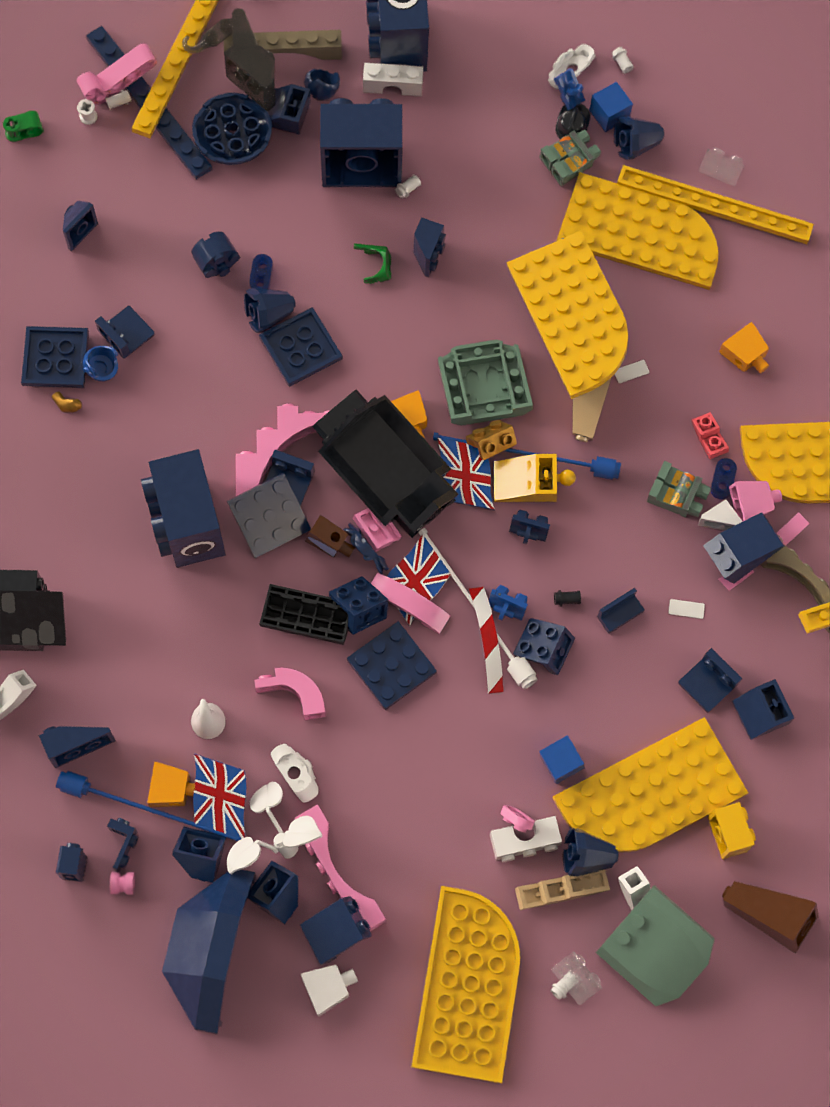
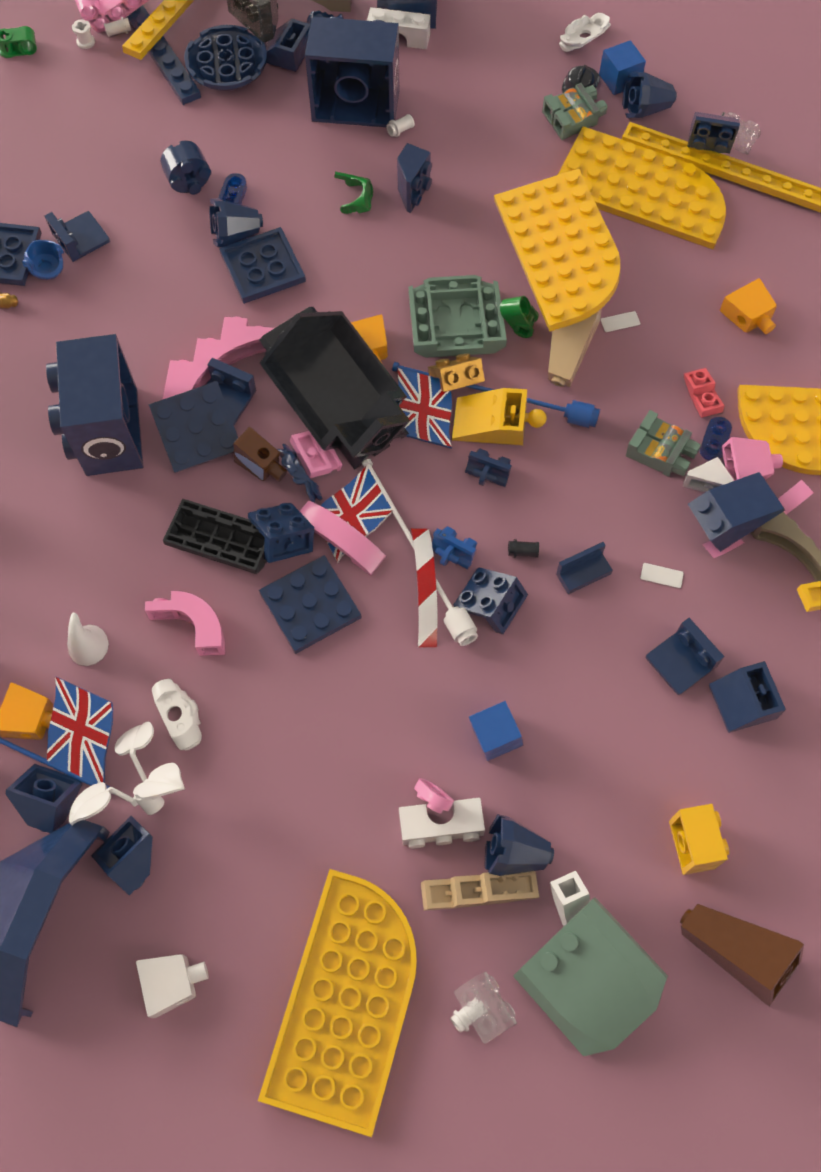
camera: 10 degrees right, 5 degrees down
(78, 223) = (51, 130): dark blue slope -> none
(319, 847) = (228, 888): bright pink arch -> none
(335, 929) = (189, 909): dark blue panel -> none
(541, 378) = (519, 315): none -> green piece
(569, 88) = (580, 46): blue hips -> none
(622, 59) = (636, 27): white pin -> none
(654, 790) = (606, 781): yellow plate -> none
(700, 175) = (713, 132): none -> slope

